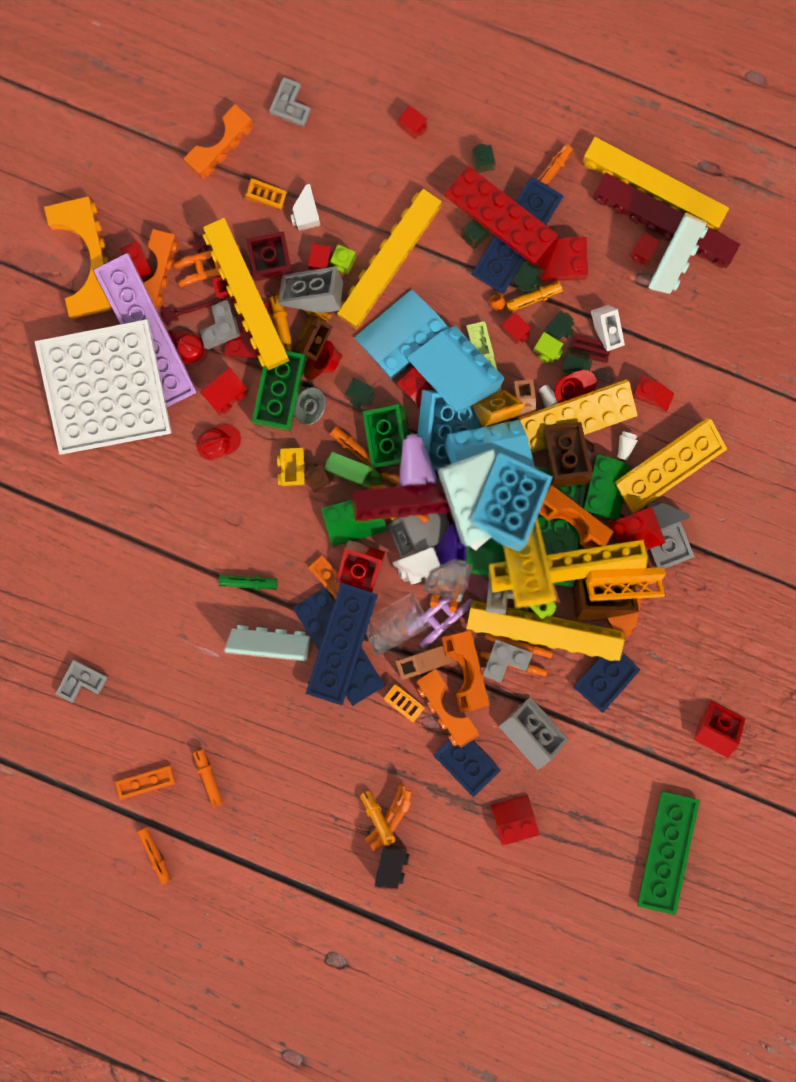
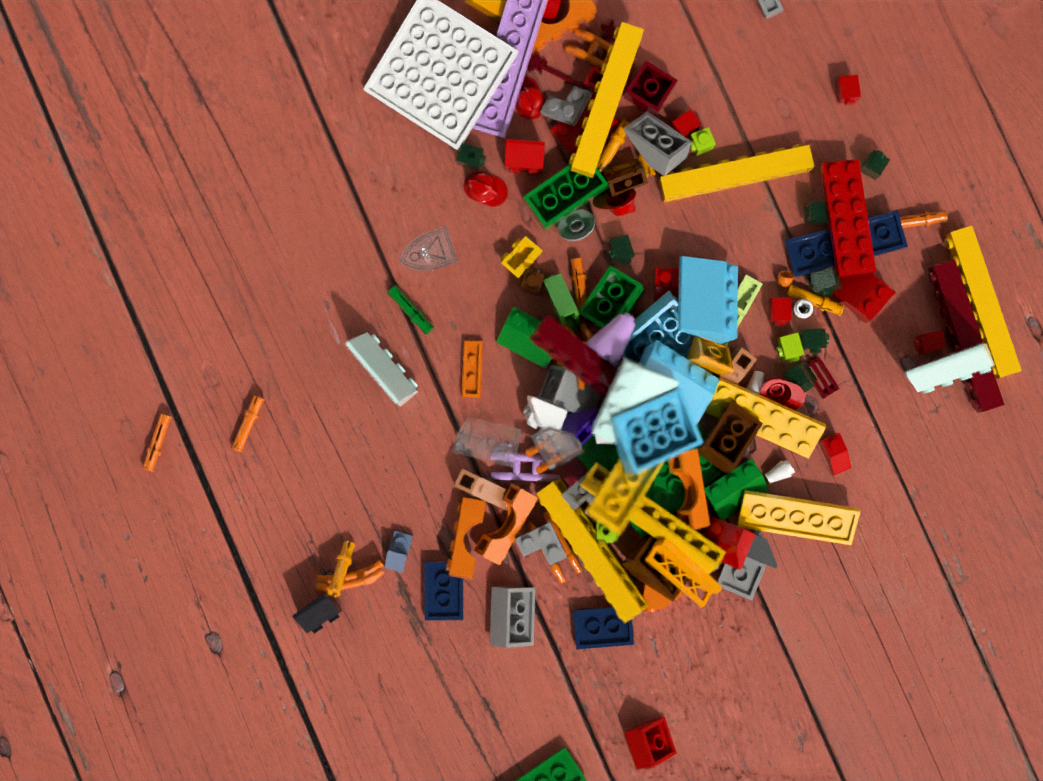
camera: 35 degrees right, 0 degrees up
(78, 676) = (224, 262): light grey plate -> none
(145, 782) = (200, 383): orange tile -> none
(186, 429) = (471, 157): none -> clear green brick
(221, 526) = (429, 251): none -> clear shield
(264, 201) = (696, 38): light orange slope -> none
(305, 211) = (708, 80): white slope -> none
(315, 615) = (431, 419): dark blue plate -> none
(341, 644) = (435, 418): dark blue plate -> none
(360, 566) = (502, 375): red slope -> none
(393, 690) = (432, 506): light orange slope -> none
(400, 333) = (692, 234): medium azure slope -> none
(406, 765) = (398, 551): none -> sand blue slope
(514, 820) = (439, 665): red slope -> none
(533, 308) = (806, 306): none -> white cone
(608, 327) = (849, 373): white slope -> none

